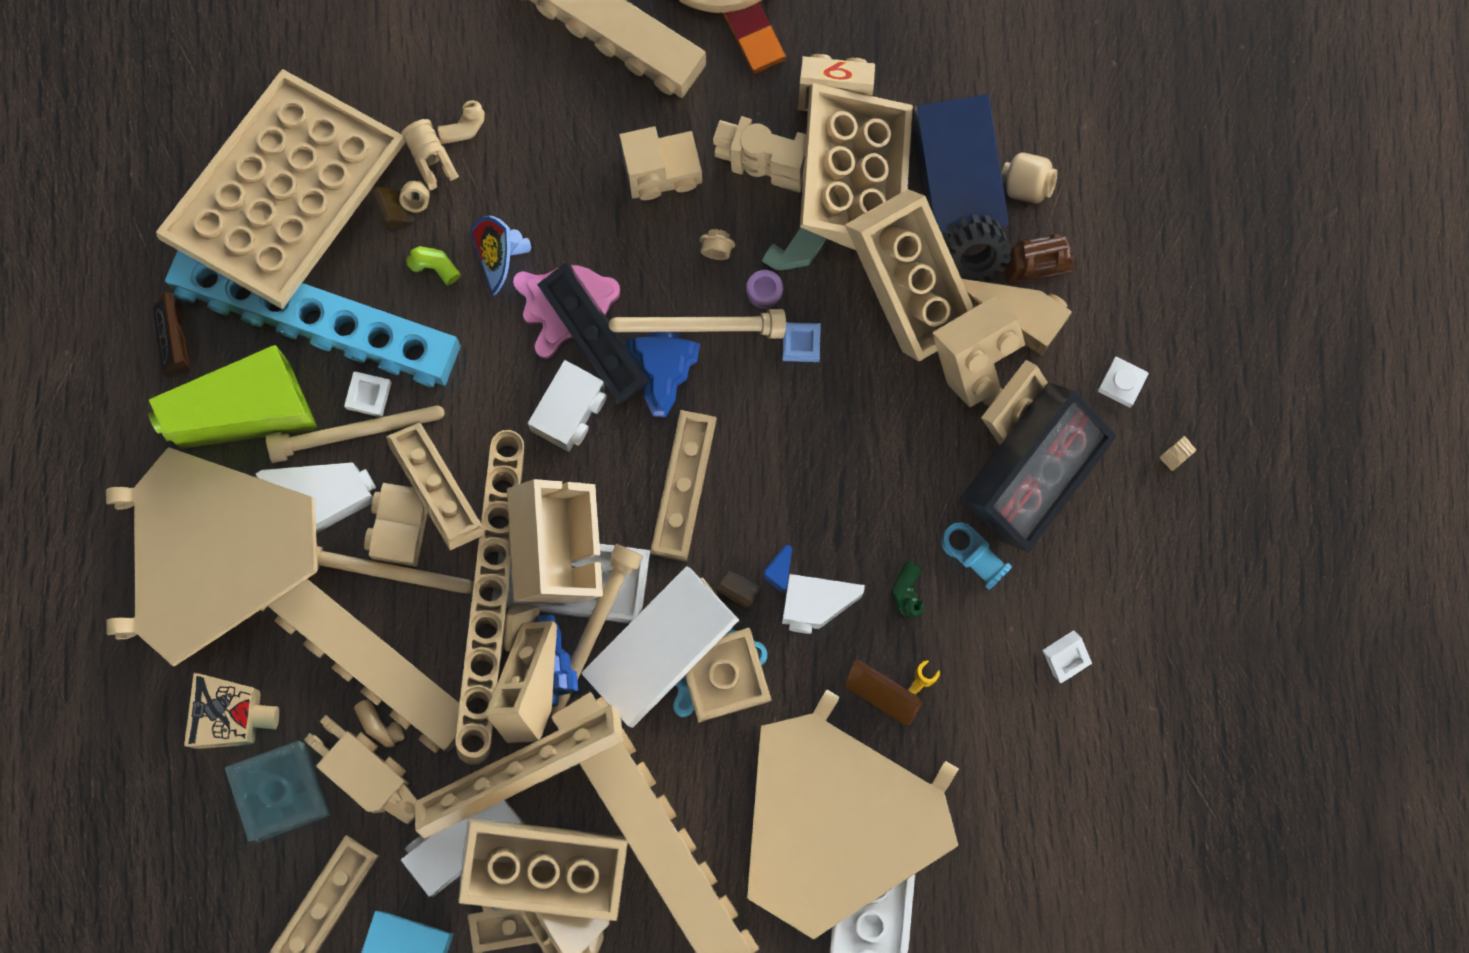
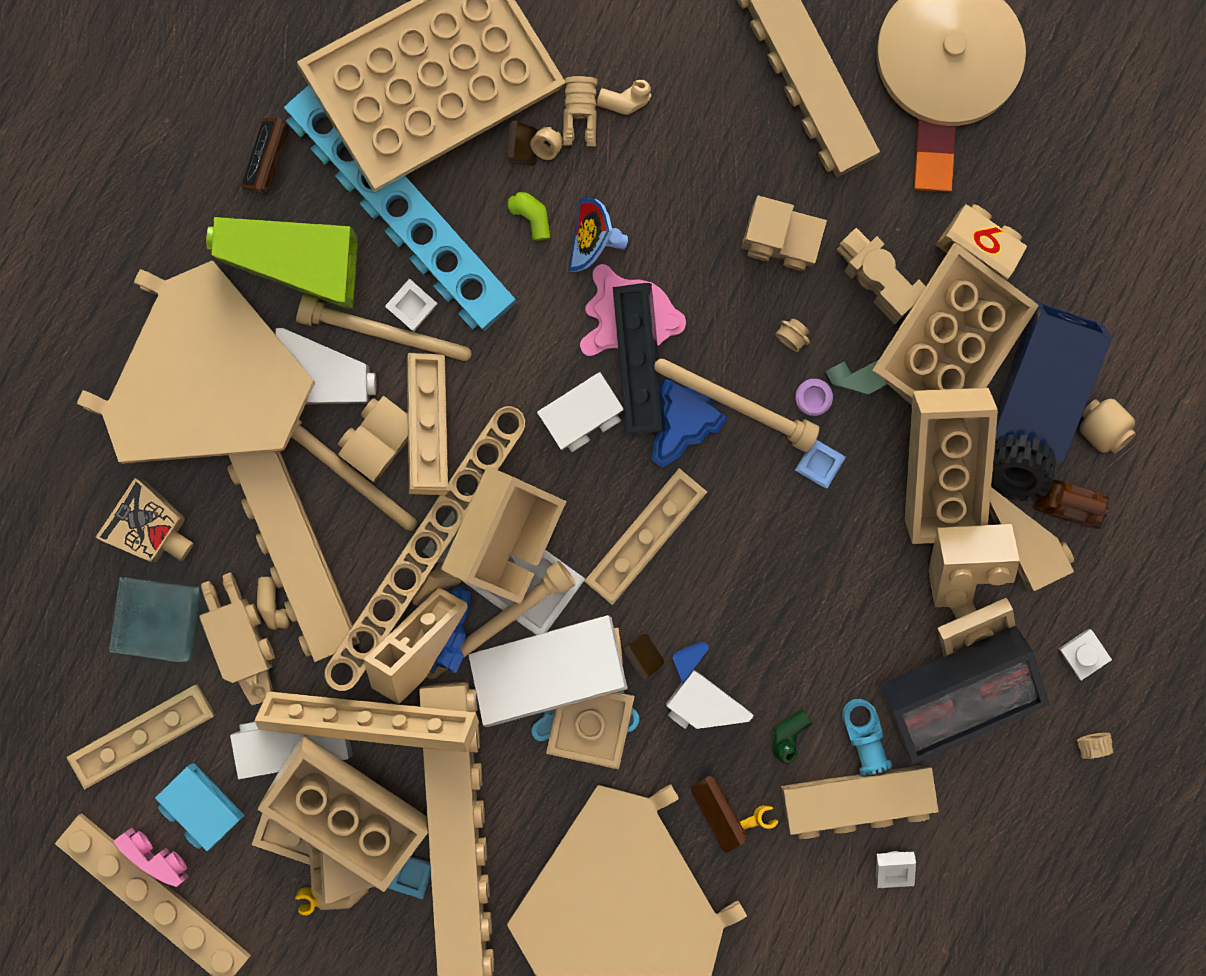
camera: 30 degrees right, 10 degrees up
(637, 903) = (413, 877): none -> medium azure tile
(999, 612) = (859, 800): none -> tan brick

